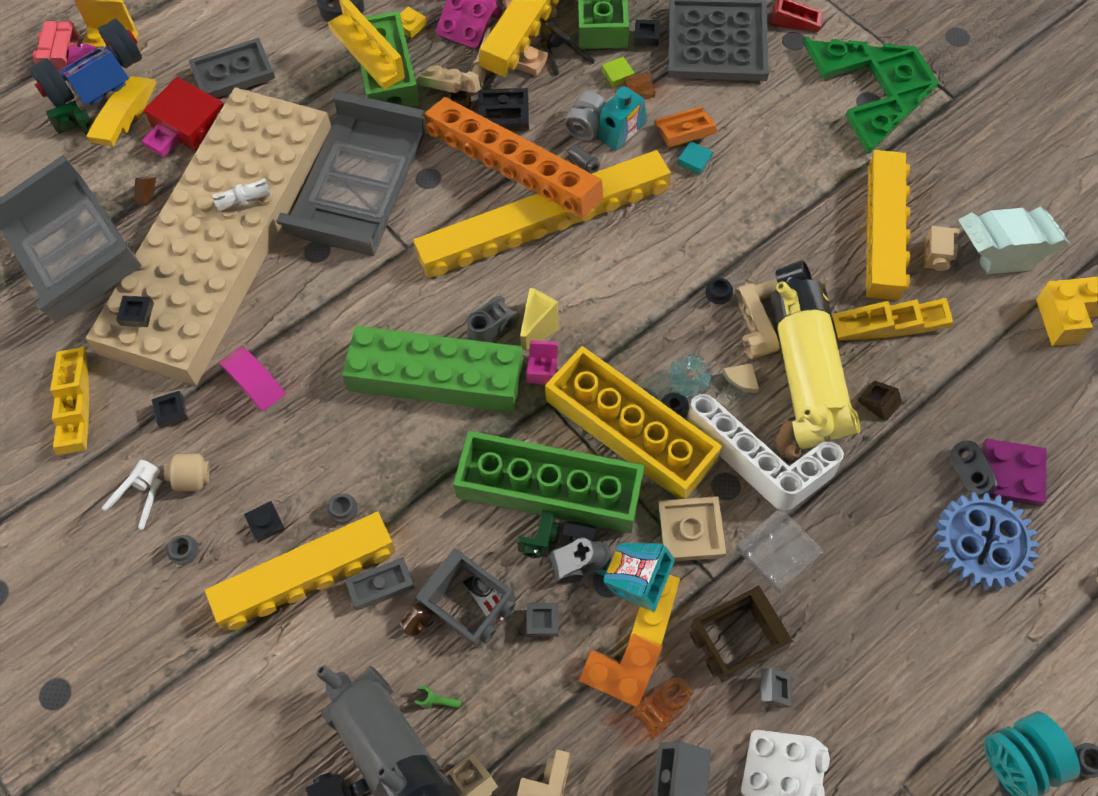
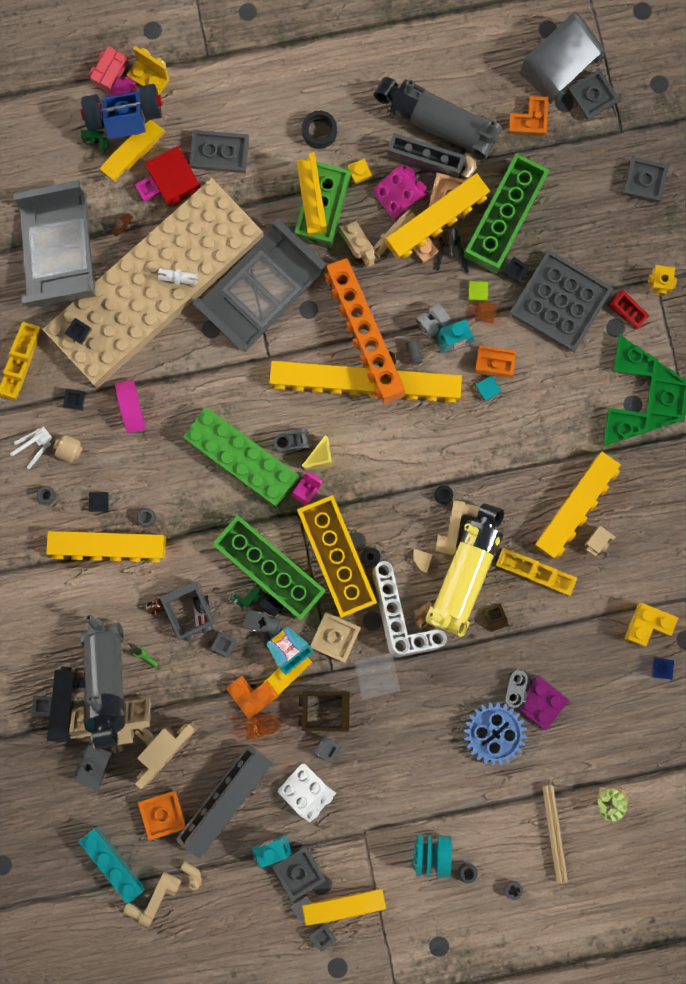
camera: 25 degrees right, 20 degrees up
(379, 583) = (145, 575): dark grey plate -> none
(505, 102) = (387, 278): black plate -> none
(680, 379) = (388, 545): clear light blue brick -> none
(1013, 238) = (645, 559): light aqua slope -> none

